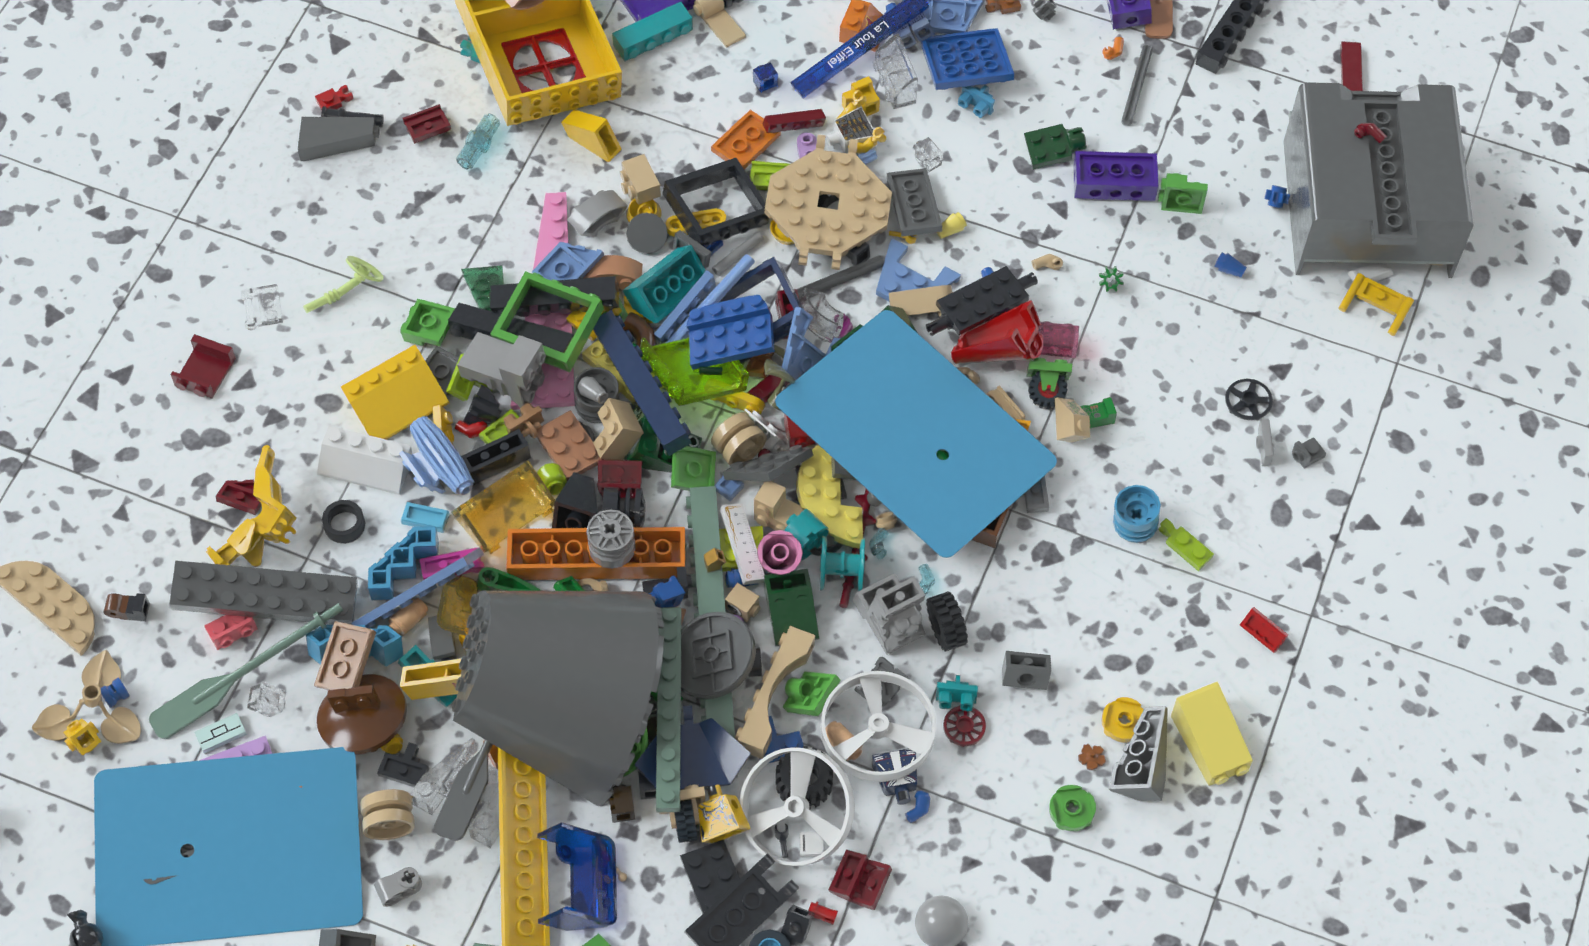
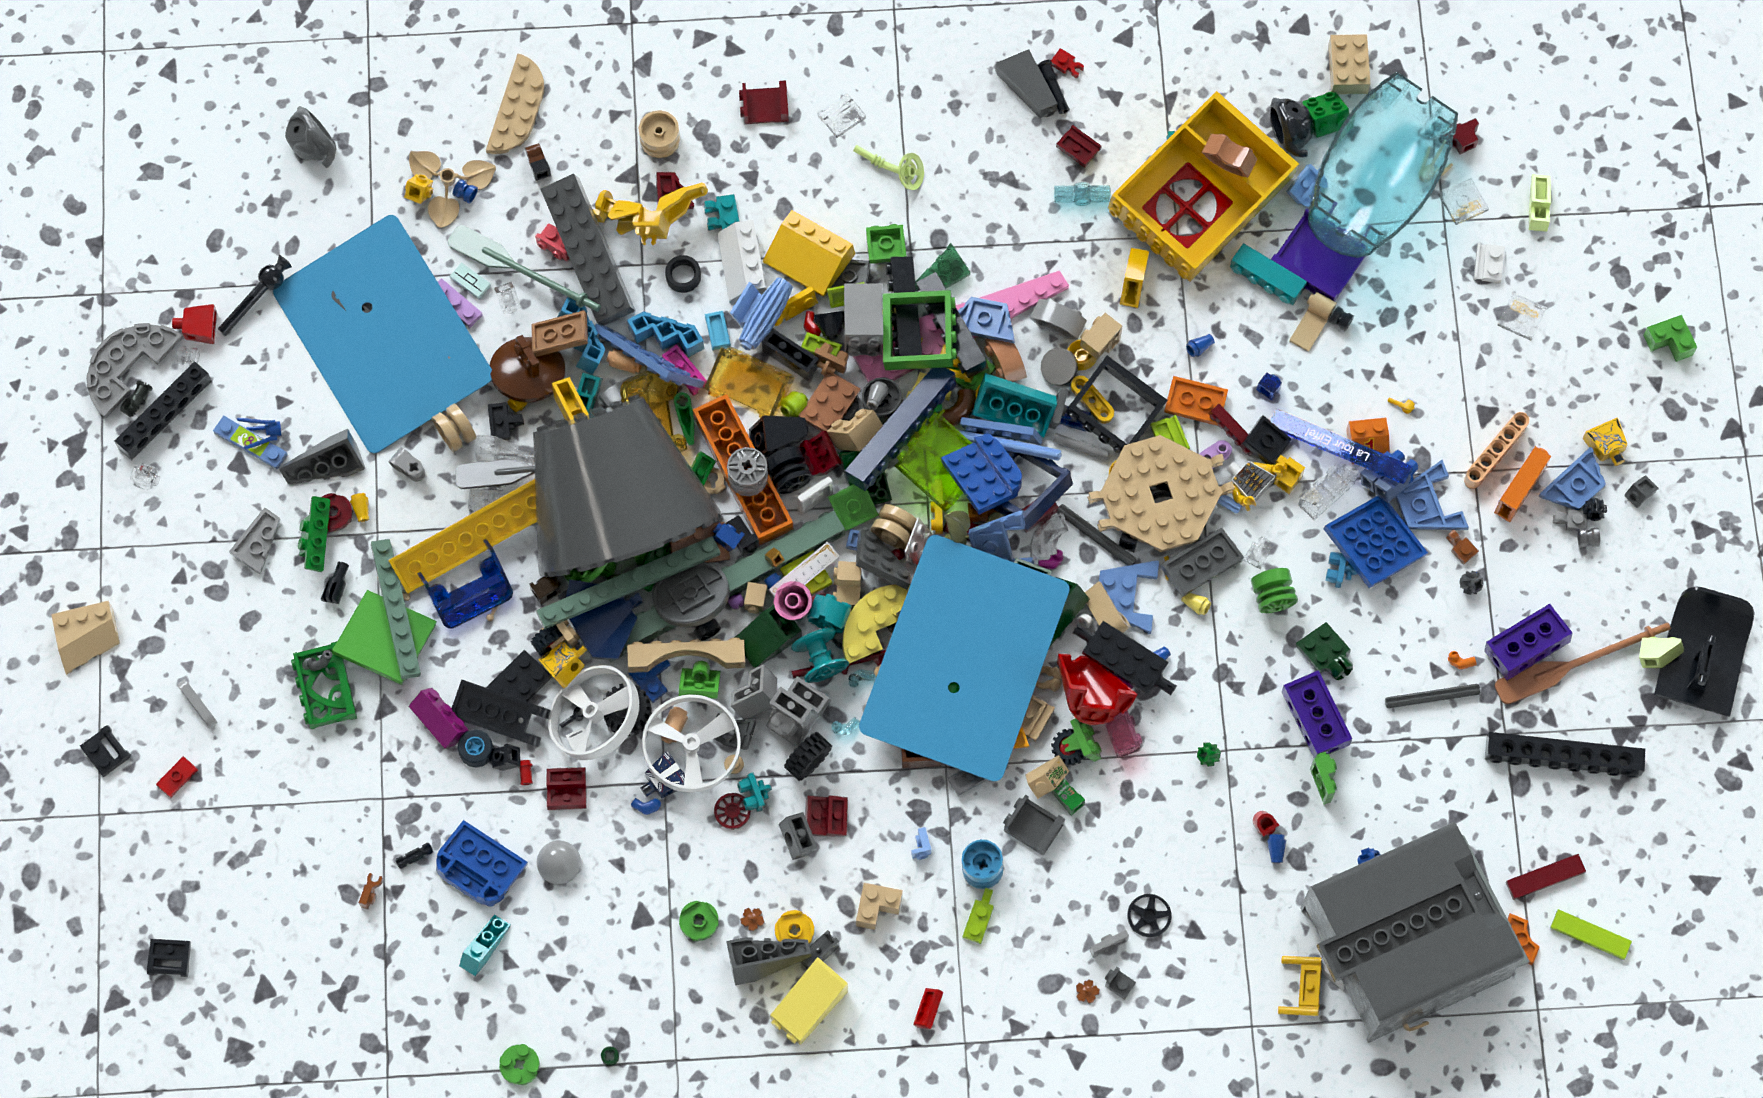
camera: 65 degrees right, 10 degrees up
(175, 475) = (659, 134): none -> tan wheel
(300, 453) = (726, 209): none -> teal plate
(664, 497) = (815, 495): none -> white tile
(691, 114) = (1198, 345): none -> blue cone
(710, 370) = (947, 478): dark green piece -> none
(819, 100) = (1266, 441): none -> black tile
(856, 643) = (756, 695): none -> light grey brick
(912, 703) = (739, 766): none -> tan plate
(923, 321) = (1085, 618): none -> white hinge
(975, 154) = (1274, 590): none -> bright green wheel
(1012, 634) = (827, 815): none -> dark red slope
(1048, 260) = (1204, 696): tan arm -> none
(1086, 559) = (922, 841): none -> light blue bracket
(1113, 456) = (1033, 825): none -> dark grey panel
(1128, 630) = (876, 899): none -> tan brick
(1155, 696) = (822, 948): none -> dark grey hinge
(1202, 263) = (1265, 823): none -> red plate
(1303, 484) = (1086, 991): none -> dark orange plant
(1368, 129) = (1429, 898): dark red arm -> none
(1421, 65) = (1591, 934): none -> lime tile

